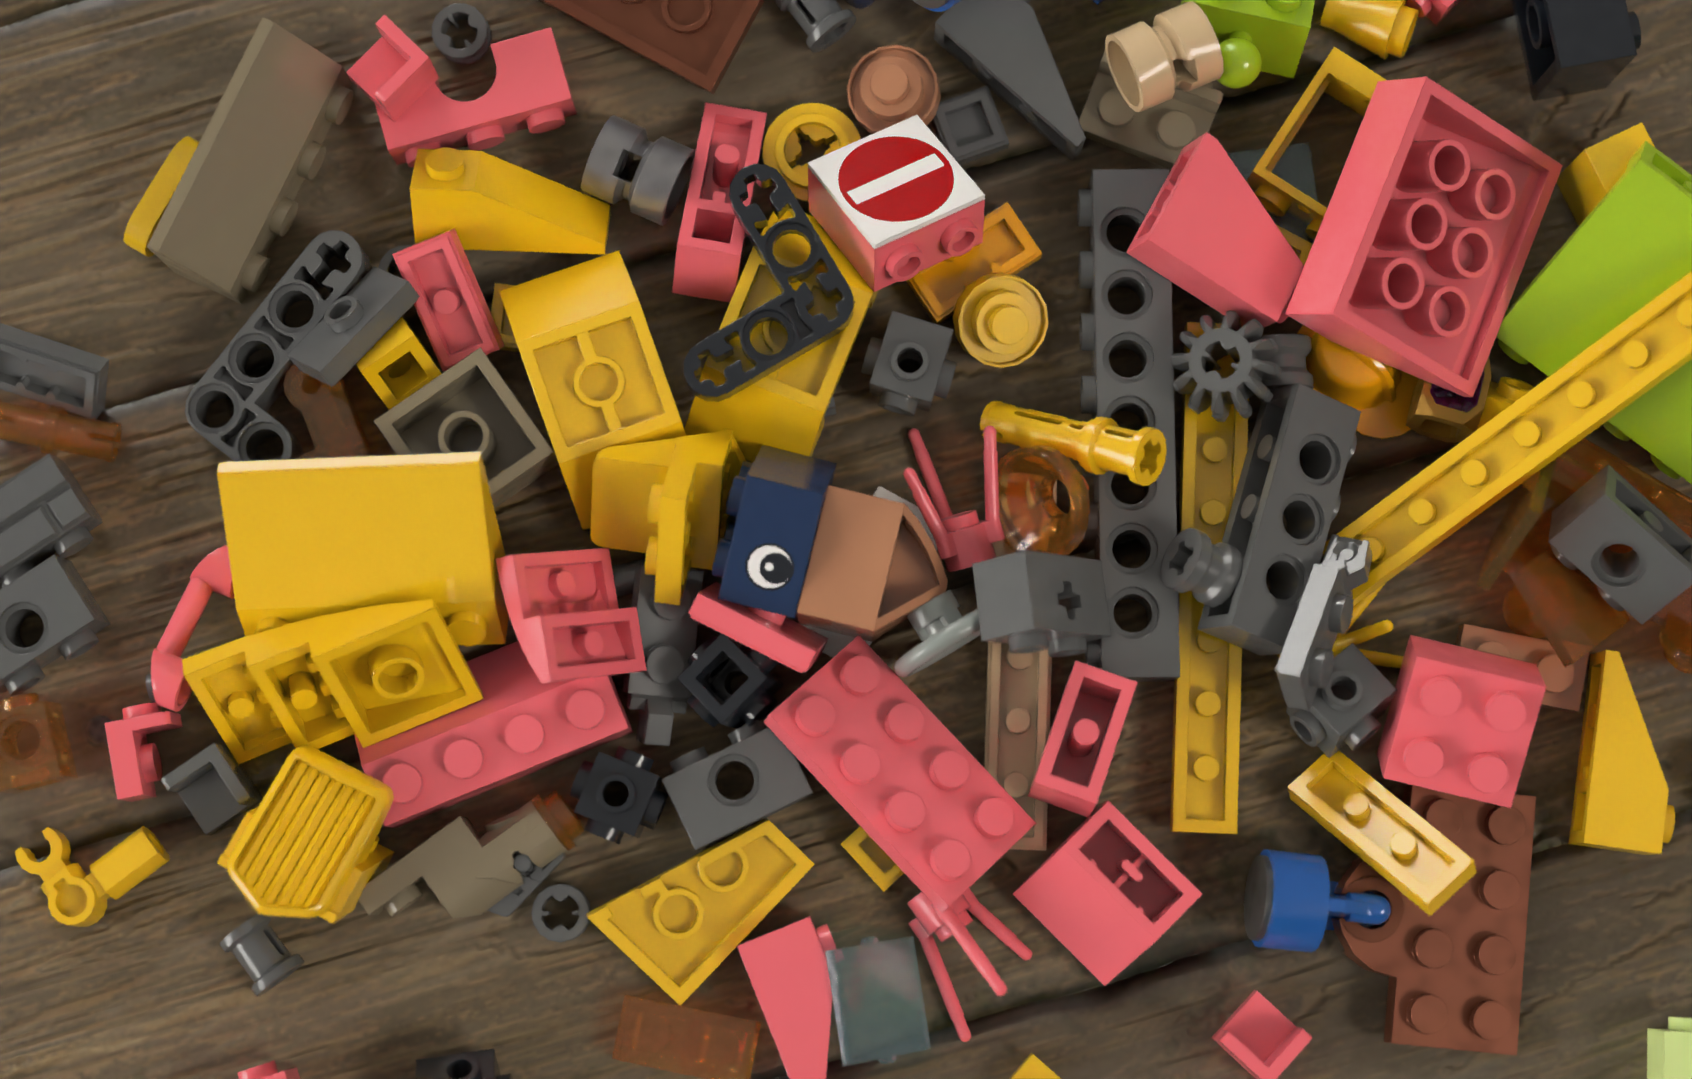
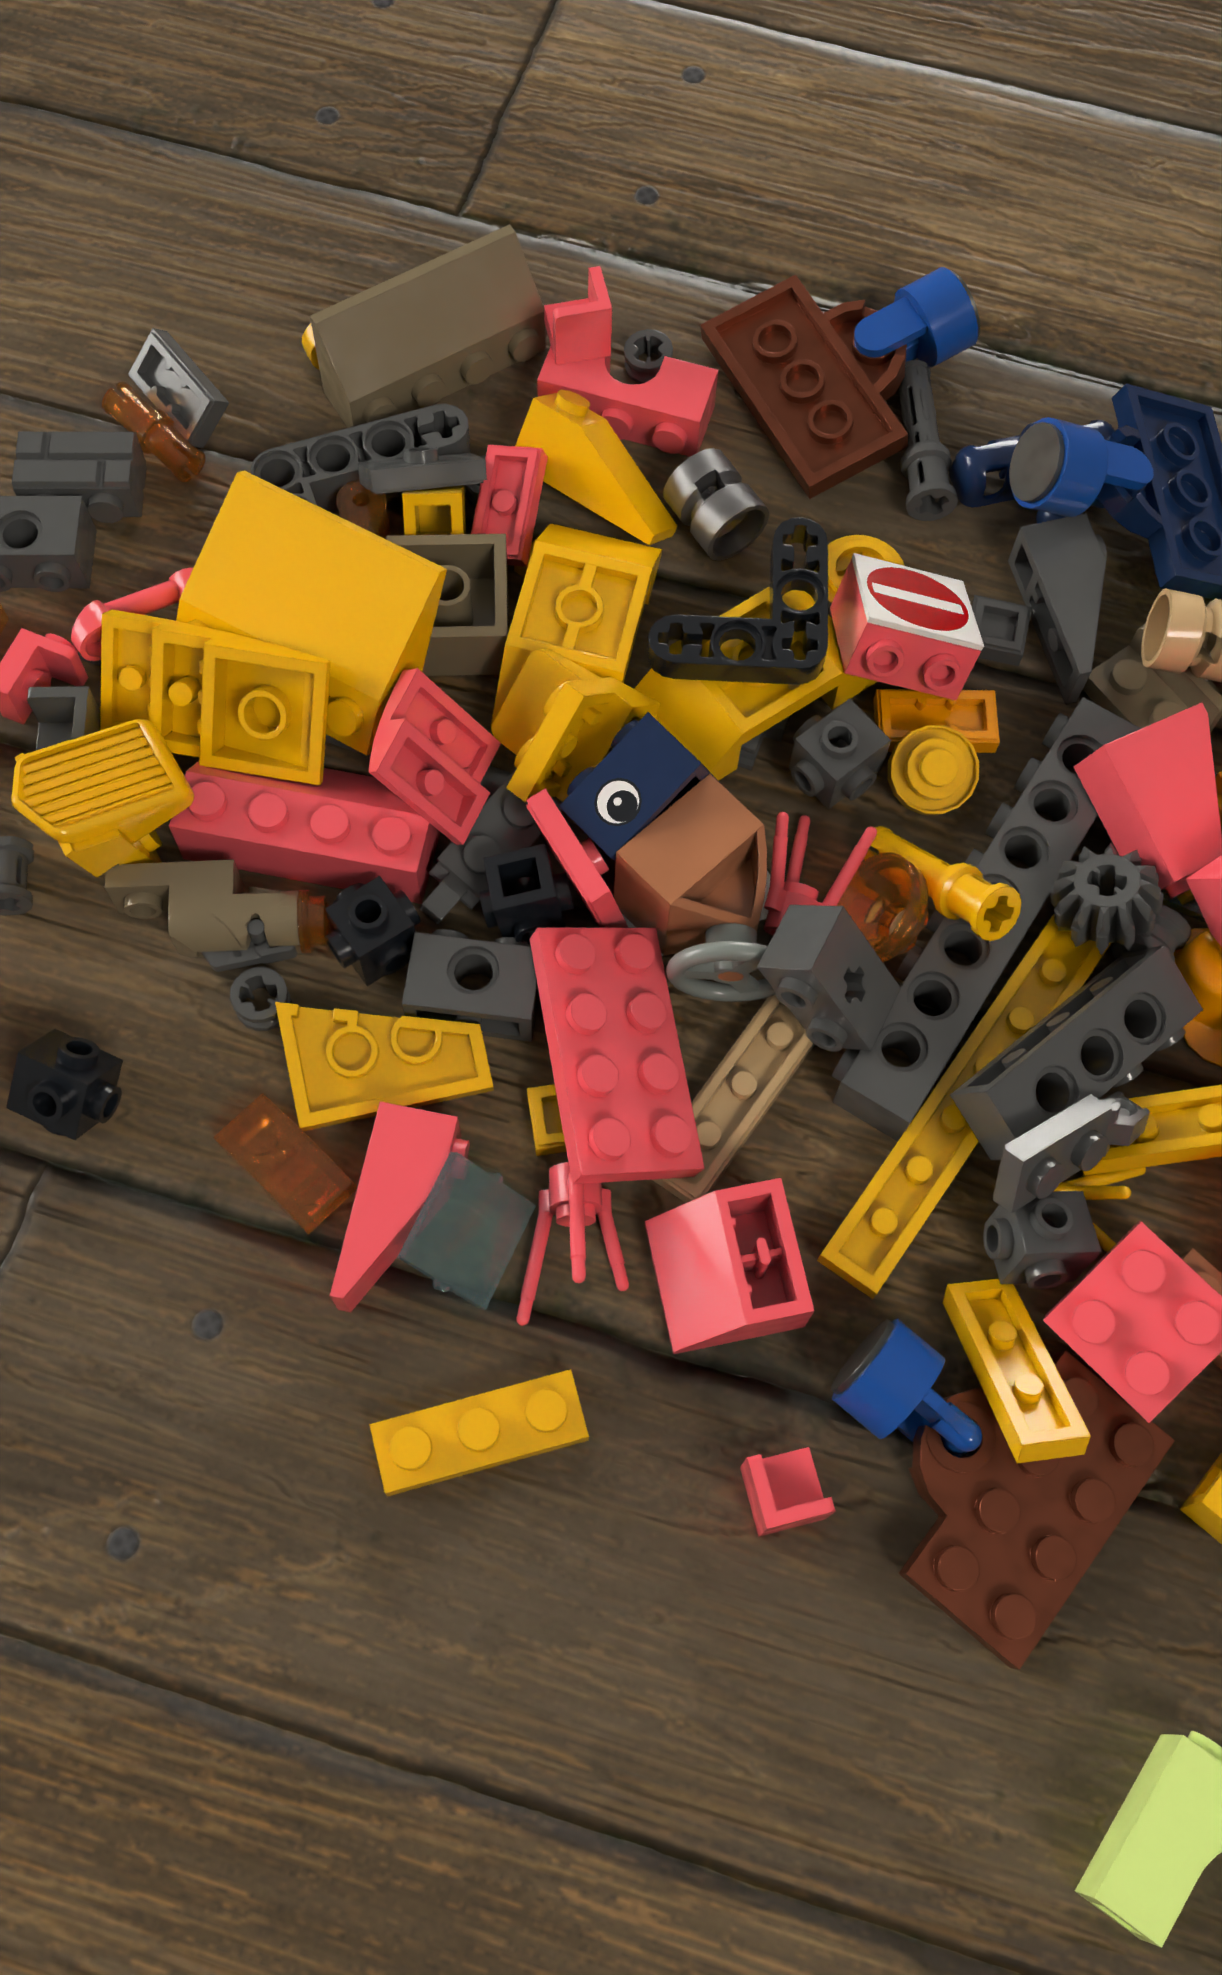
camera: 30 degrees right, 15 degrees down
(710, 234) = (741, 562): coral slope -> none
(892, 87) = (958, 556): nougat plate -> none
(1082, 739) = (791, 1117): coral brick -> none
(1201, 567) = (986, 1038): dark grey wheel -> none

